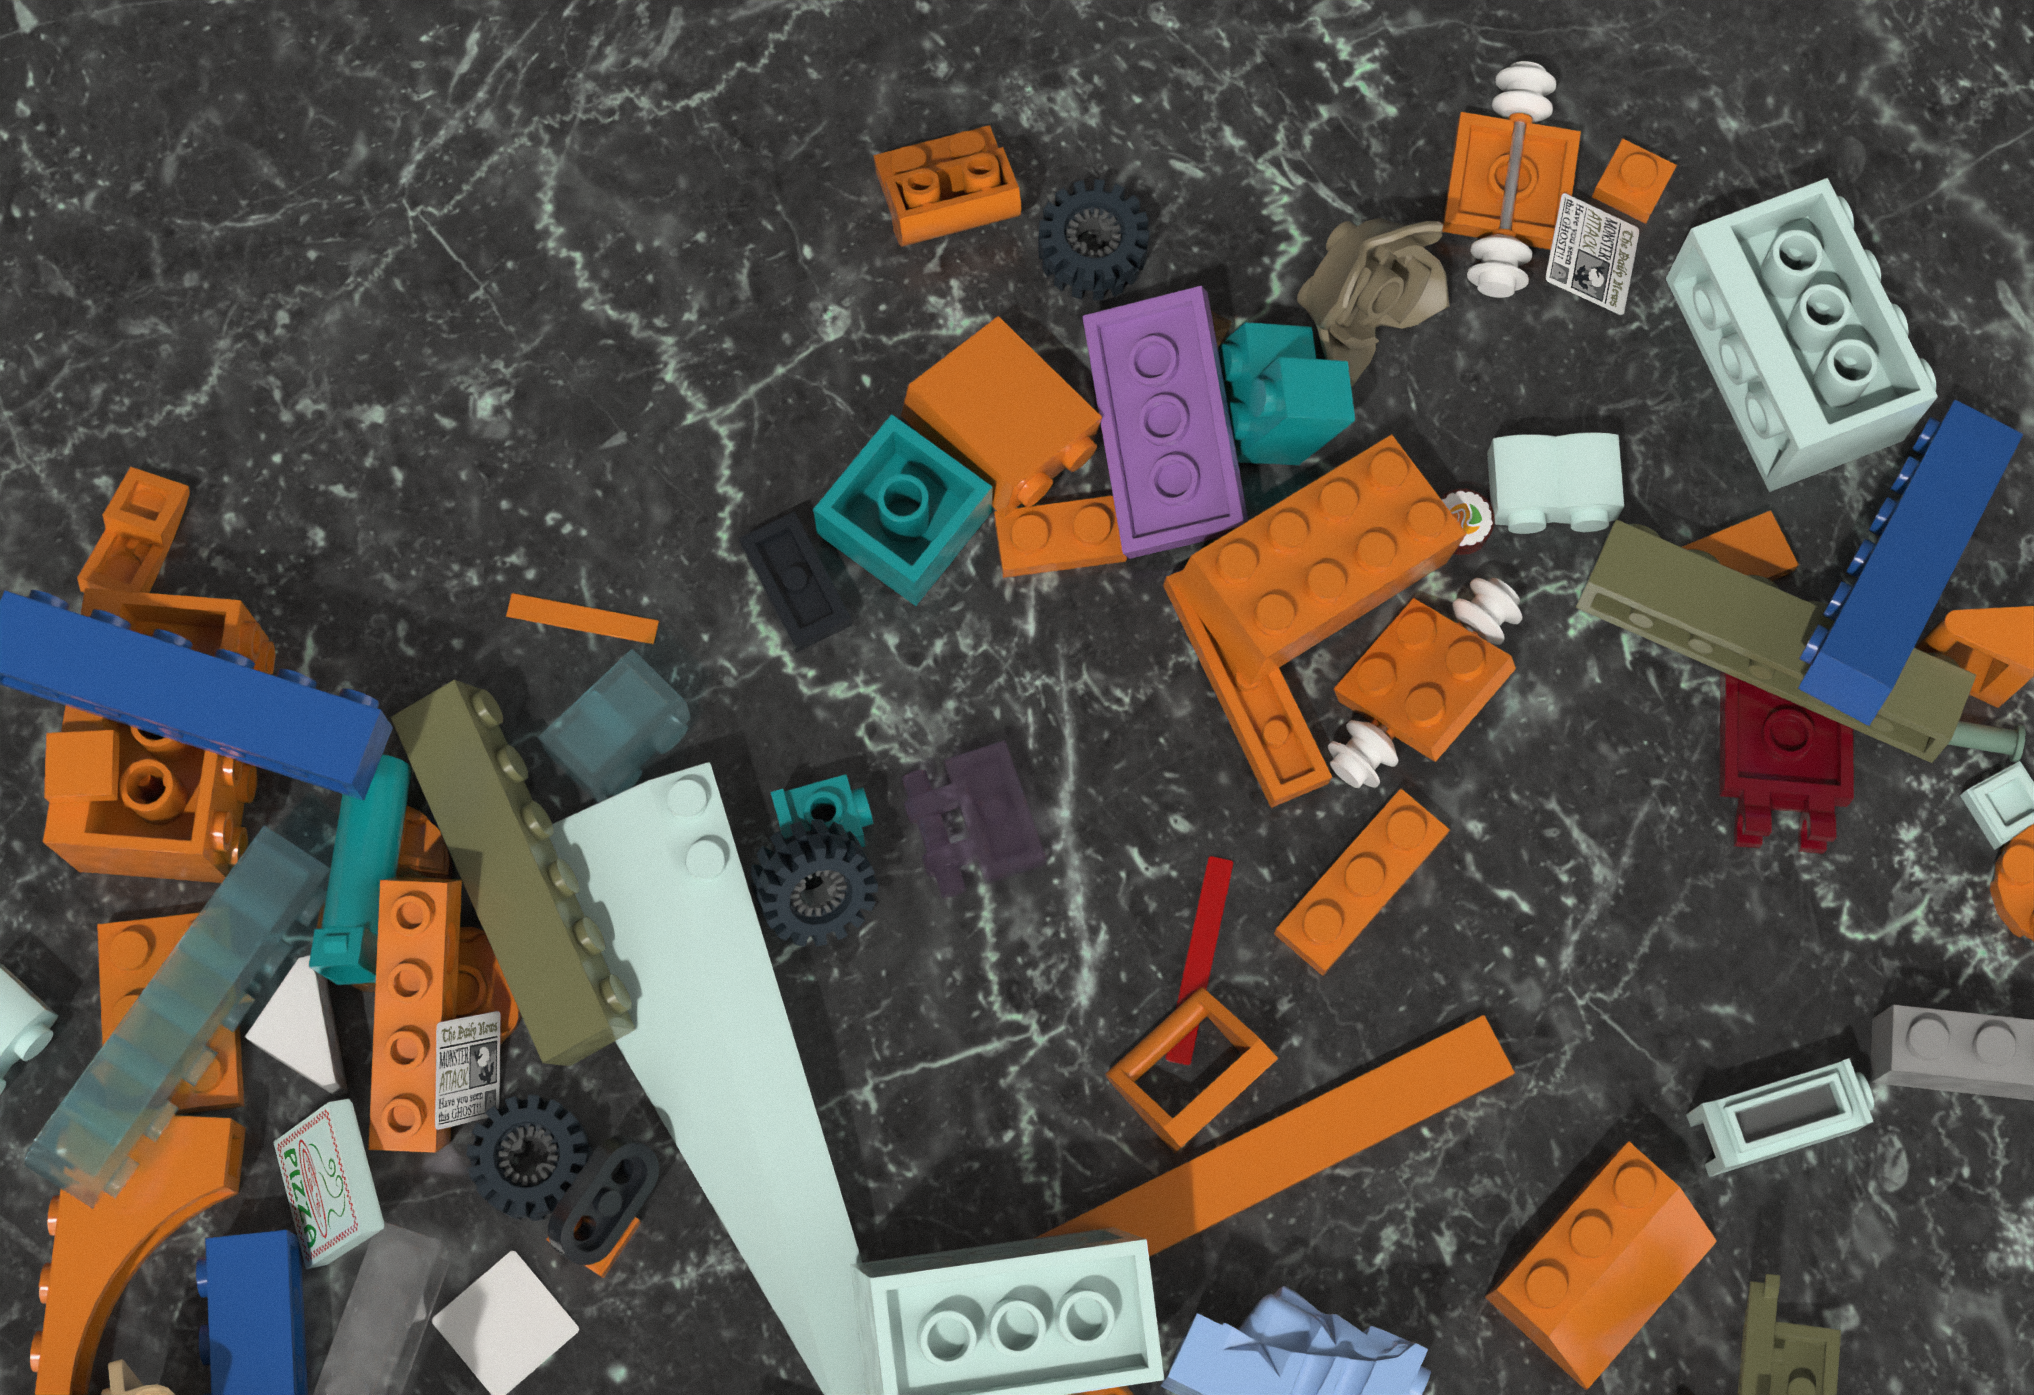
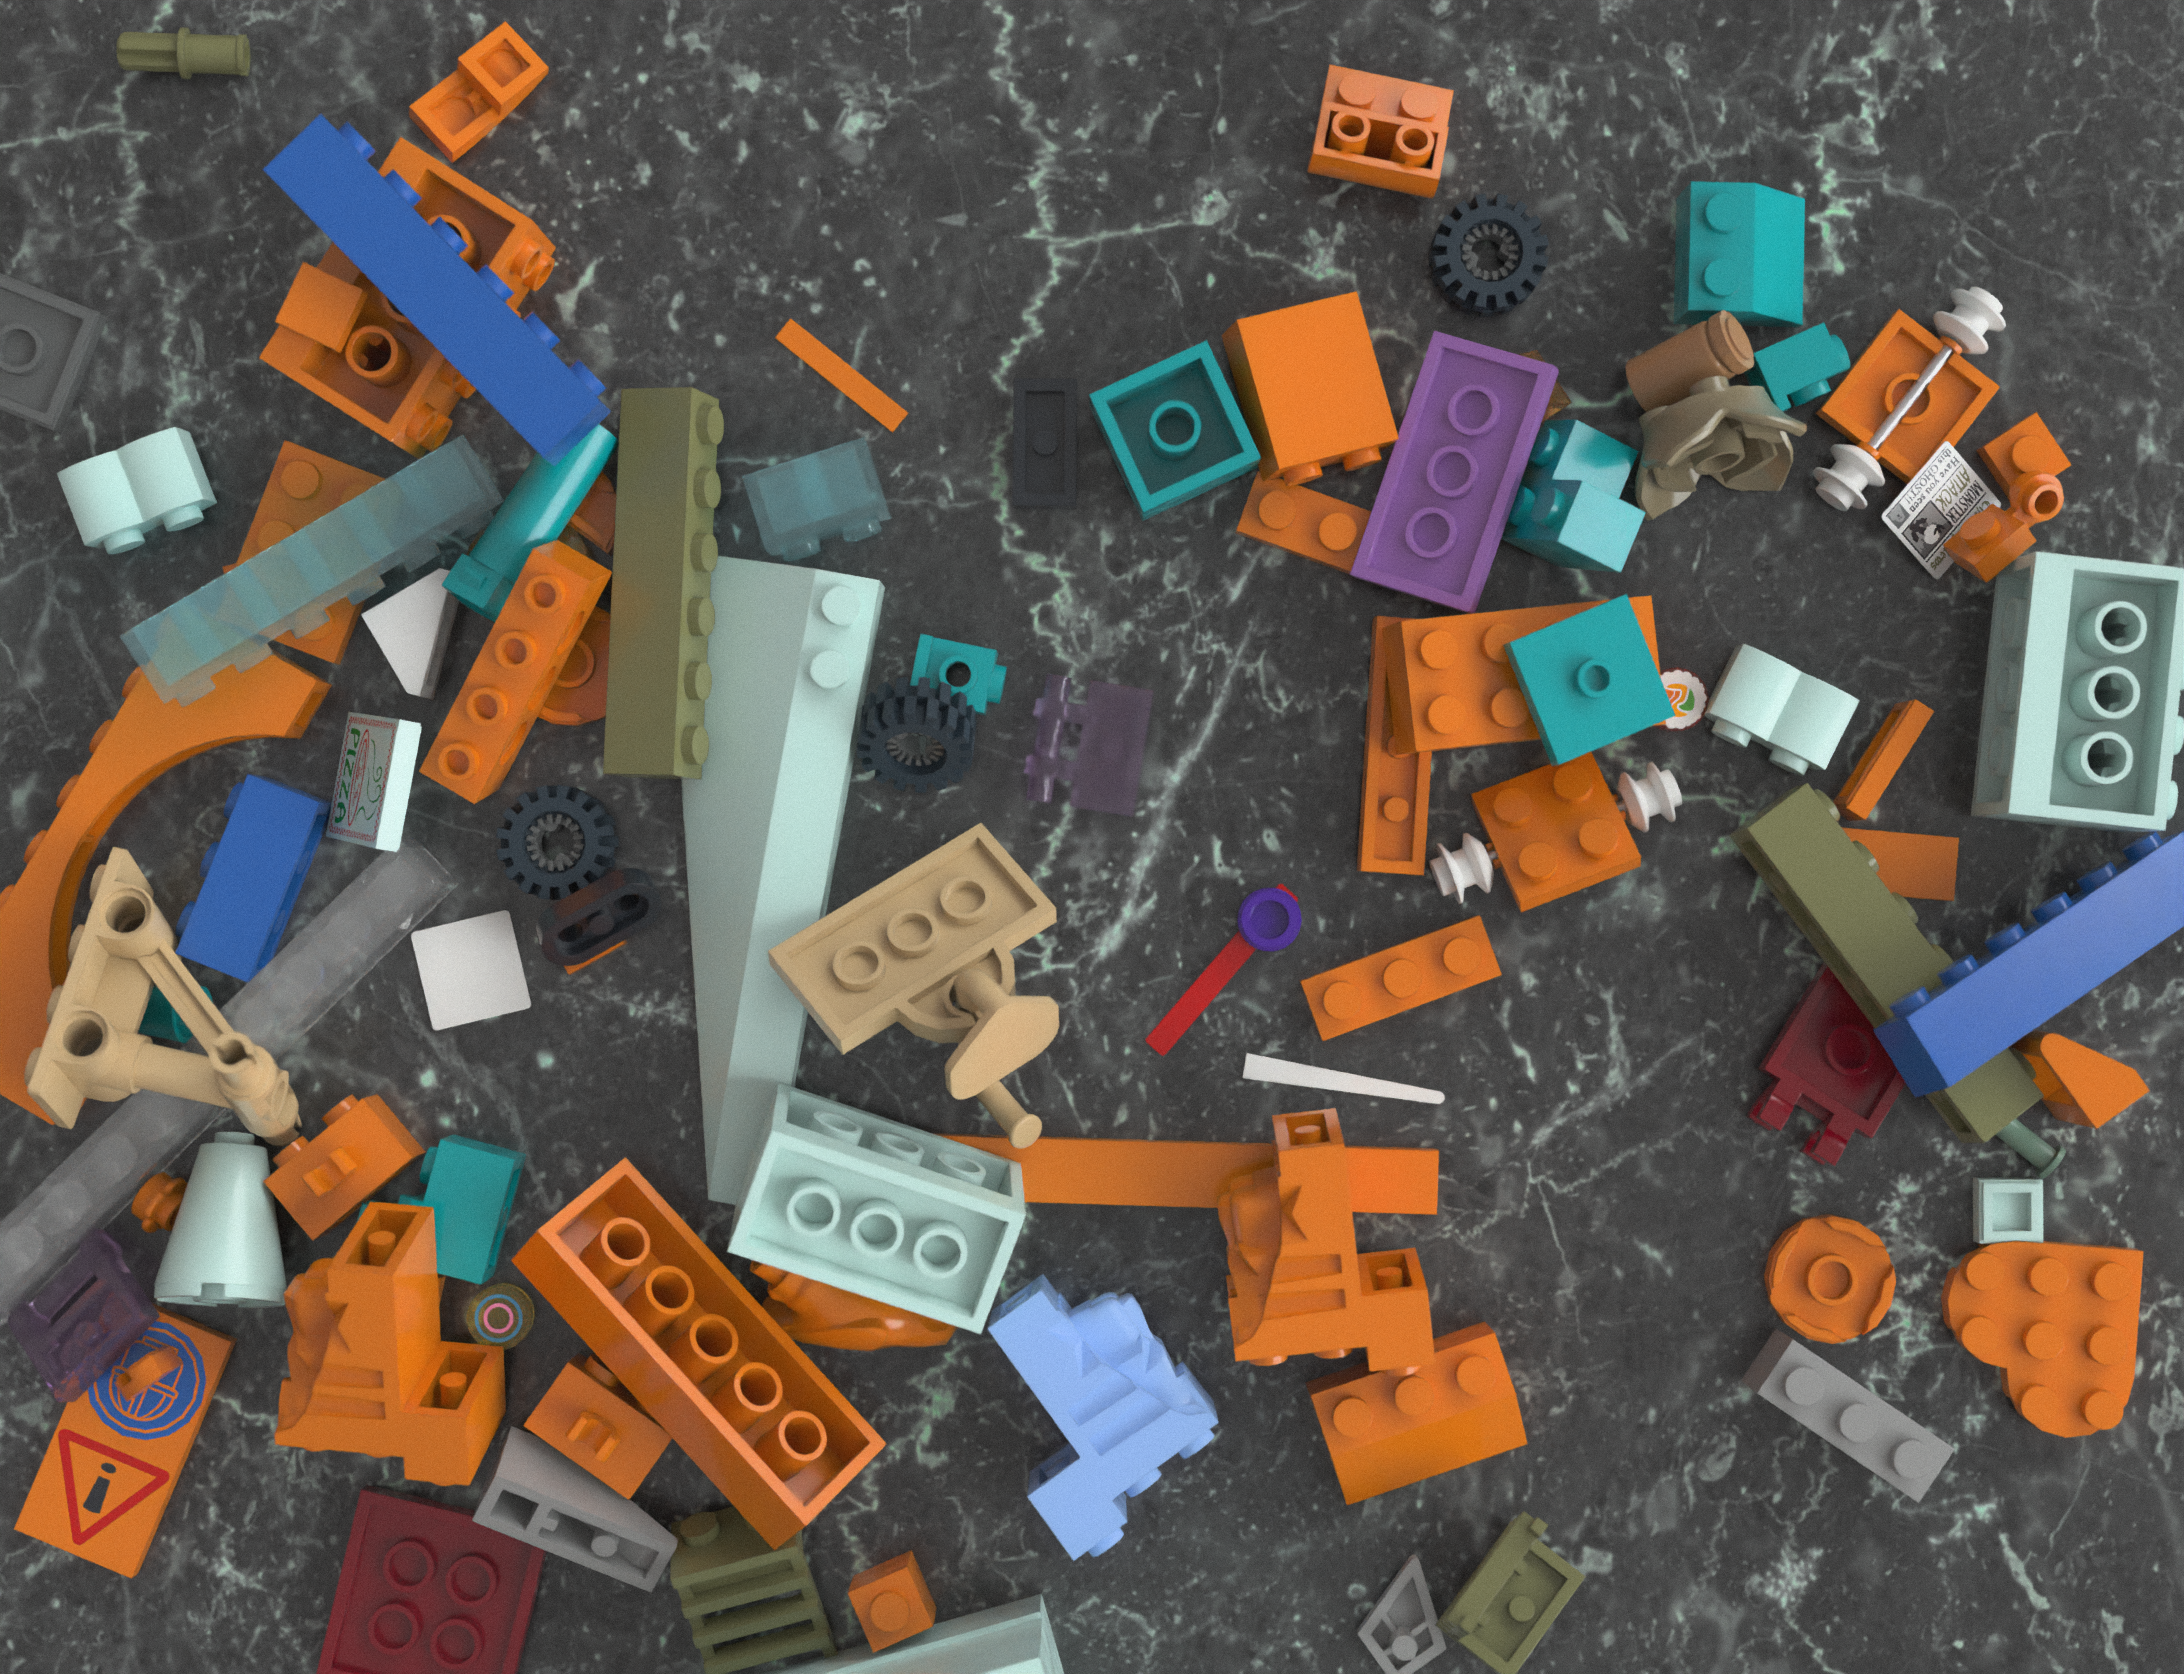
camera: 30 degrees right, 15 degrees up
(467, 1068) = (537, 743): sticker -> none
(944, 1064) = (917, 947): none -> tan plate
(1179, 1130) = (1170, 1098): orange tile -> none
(1217, 890) = (1269, 919): none -> dark purple tile
(1301, 138) = (1739, 254): none -> teal slope
(1304, 236) = (1702, 351): none -> medium nougat piece
(1319, 1017) = (1298, 1074): none -> white sticker
(1380, 523) = (1589, 680): none -> teal plate
(1406, 192) = (1799, 367): none -> teal brick
(1421, 1169) = (1297, 1264): none -> orange brick
(1651, 249) = (1997, 536): none -> orange plate
(1667, 474) = (1882, 759): none -> orange tile
(1784, 1116) = (1645, 1374): light aqua window -> none
(1892, 946) = (1829, 1278): none -> orange tile

